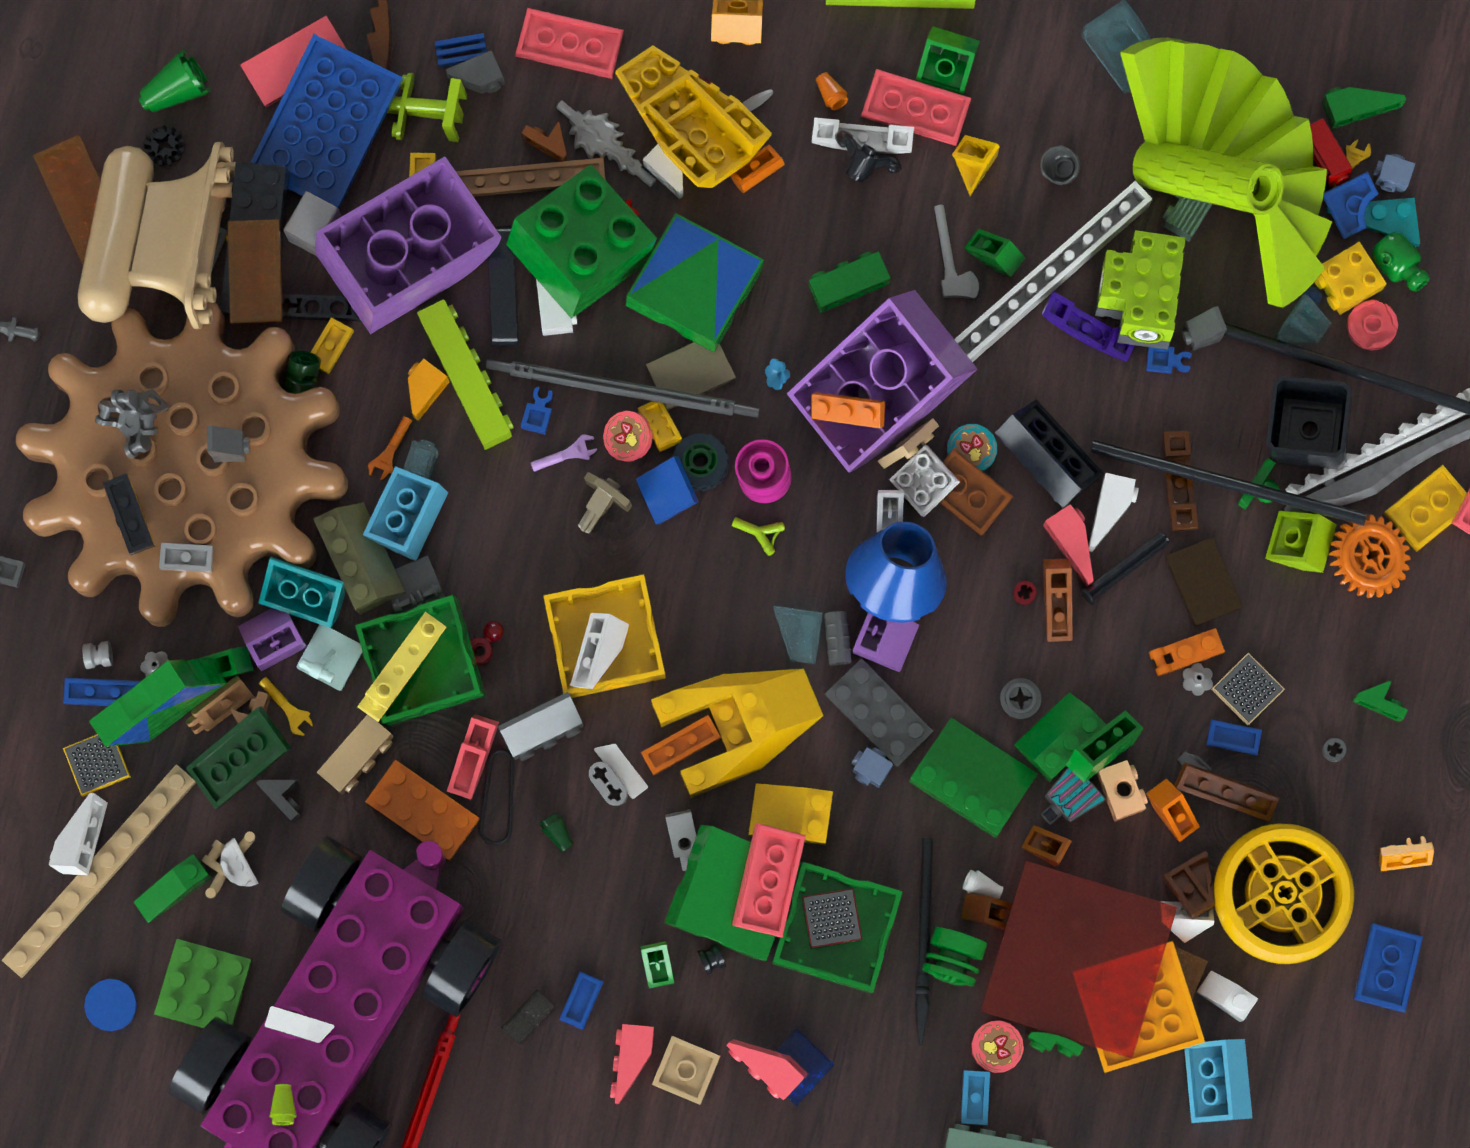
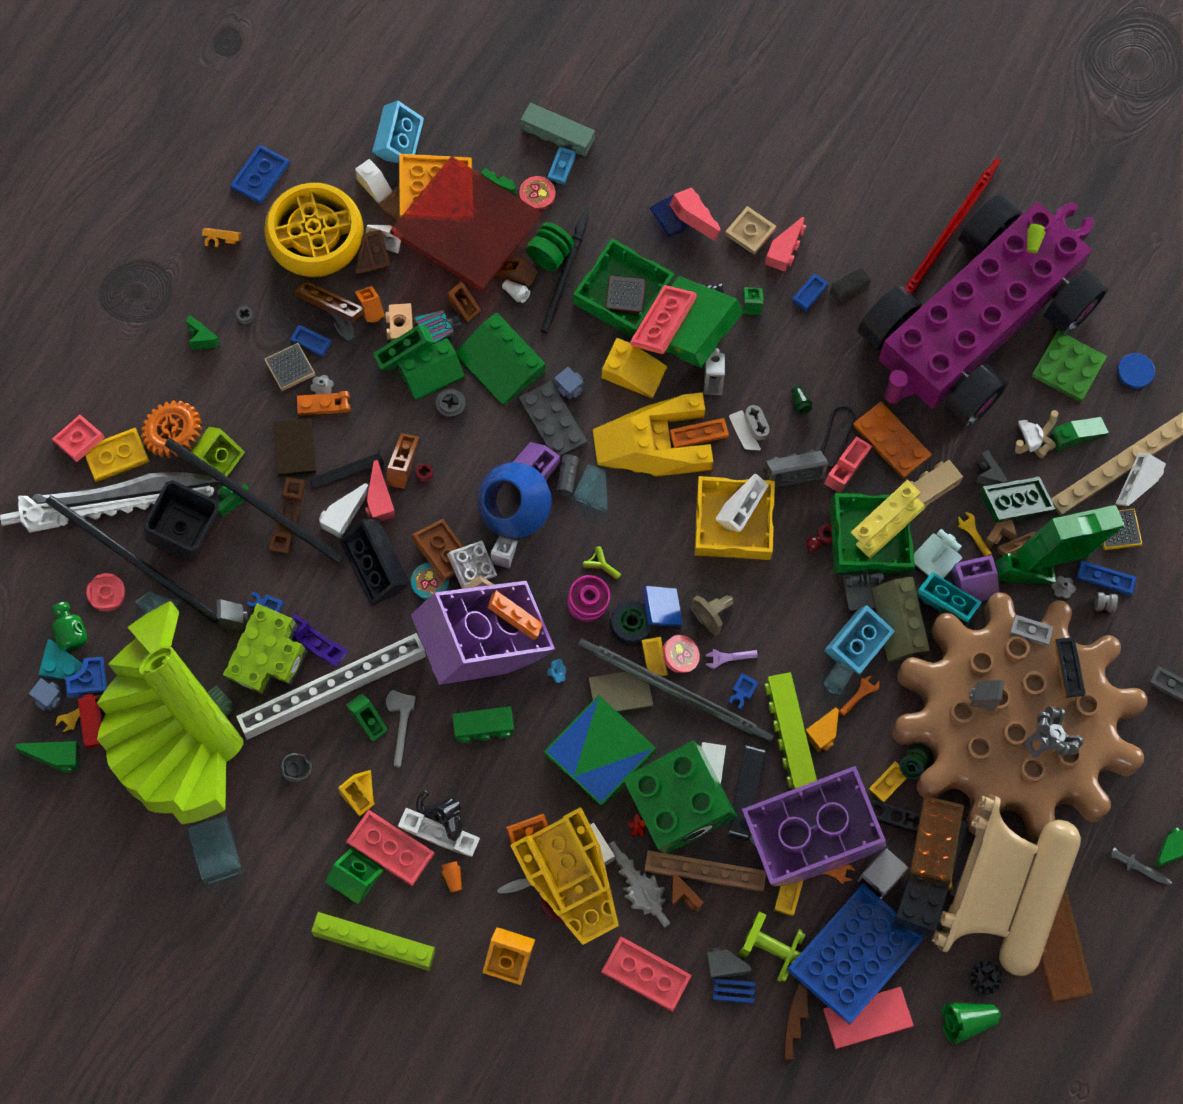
camera: 170 degrees left, 10 degrees down
(297, 1024) = (1013, 287): white sticker -> none
(1350, 279) = (110, 624): yellow brick -> none

